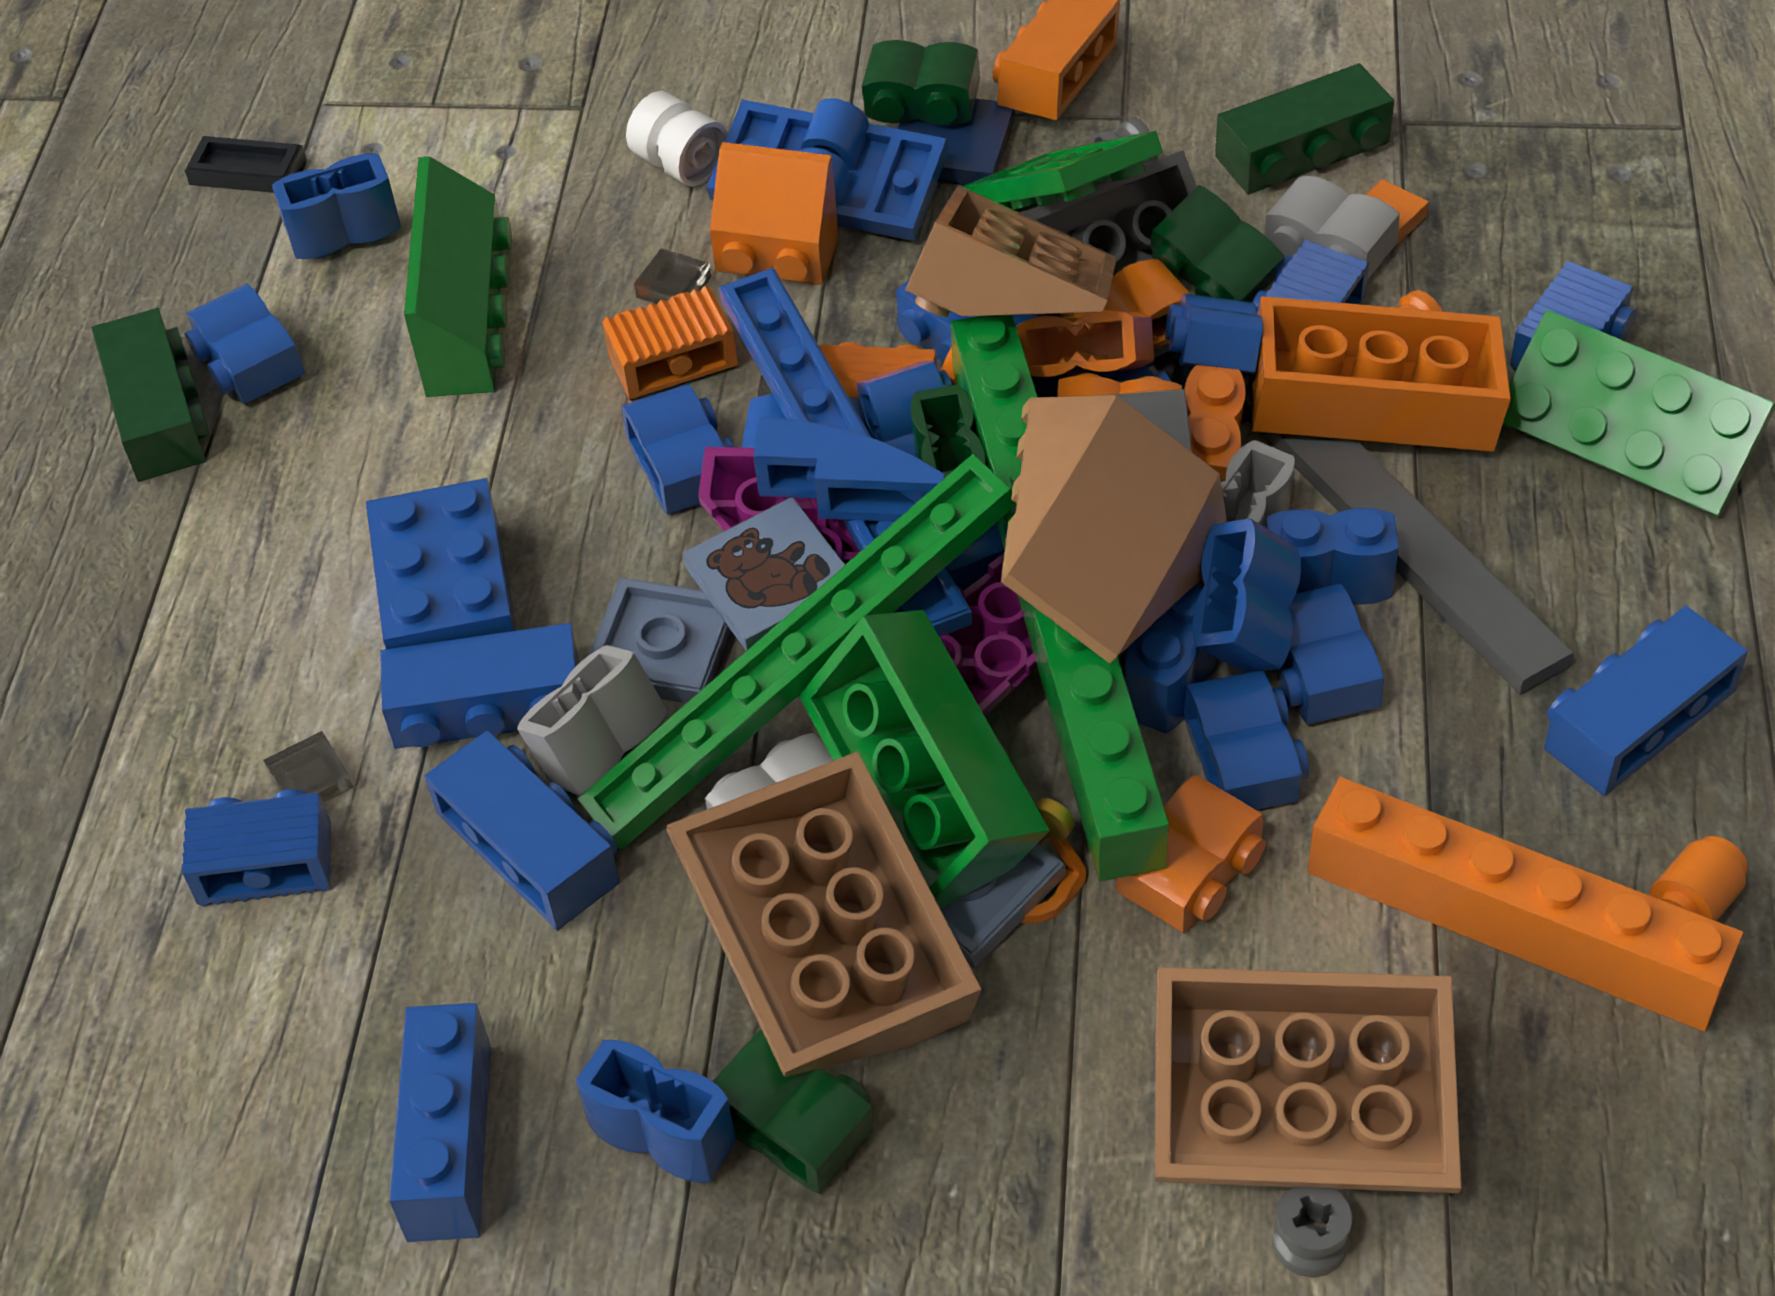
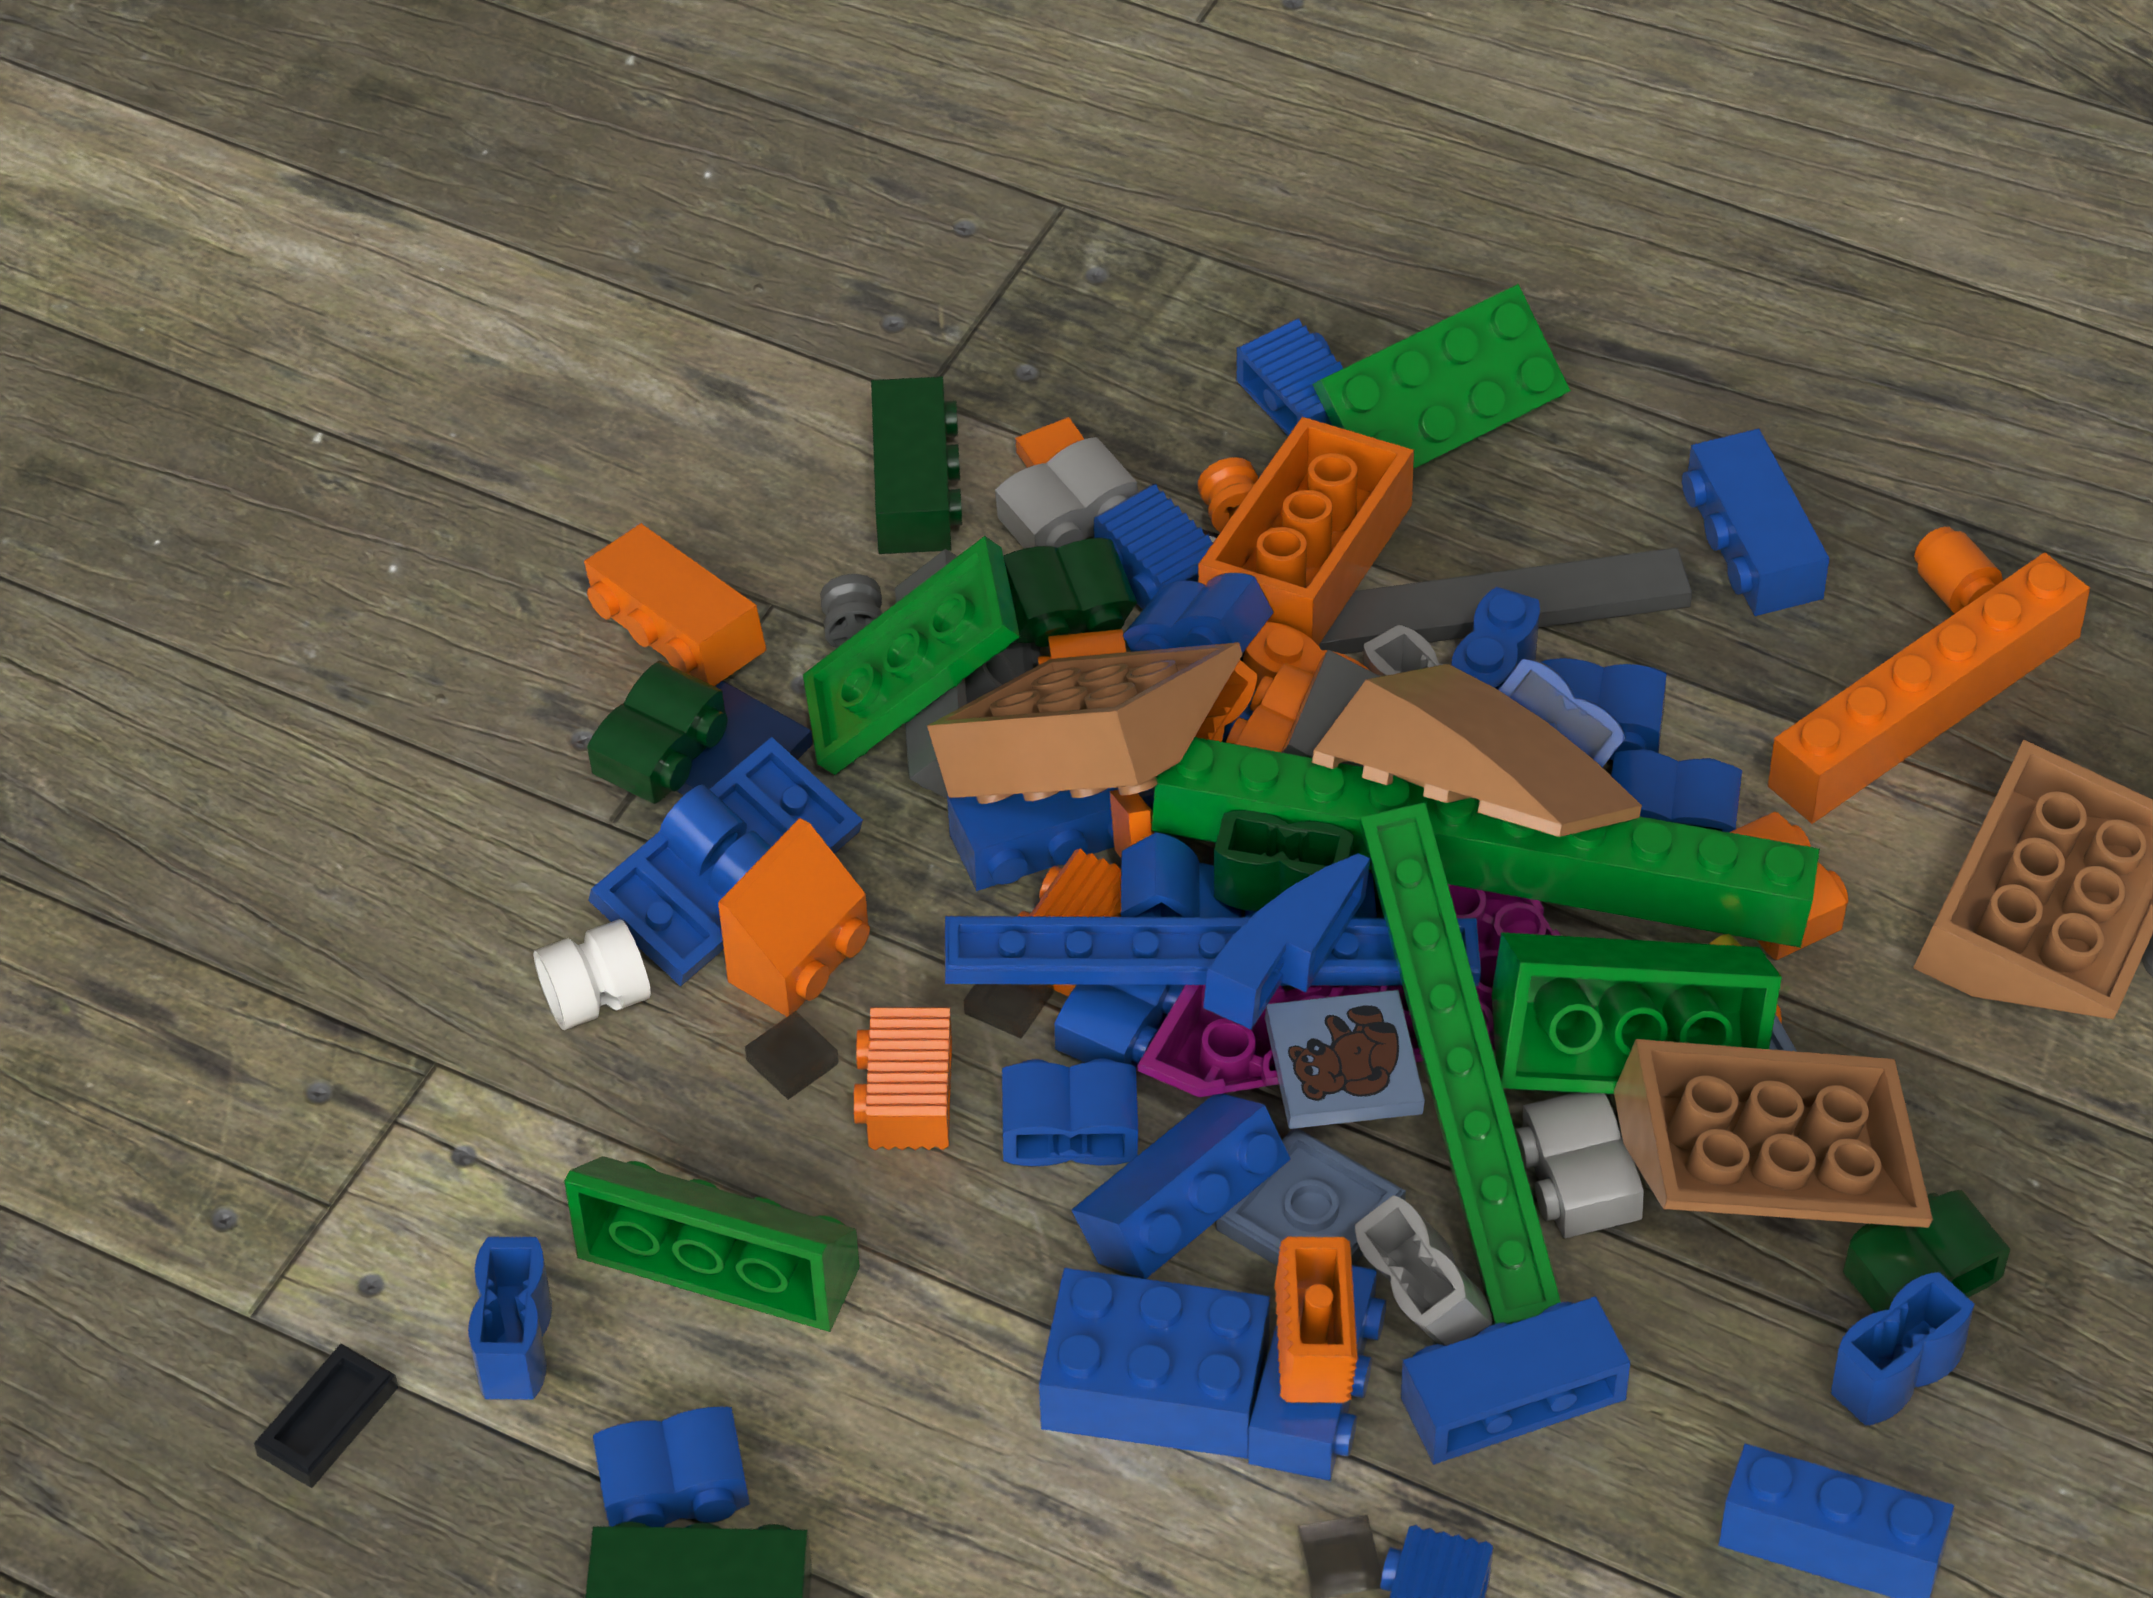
camera: 70 degrees left, 0 degrees up
(465, 633) = (1315, 1320): none -> orange brick
(615, 531) = (1181, 1185): none -> blue brick

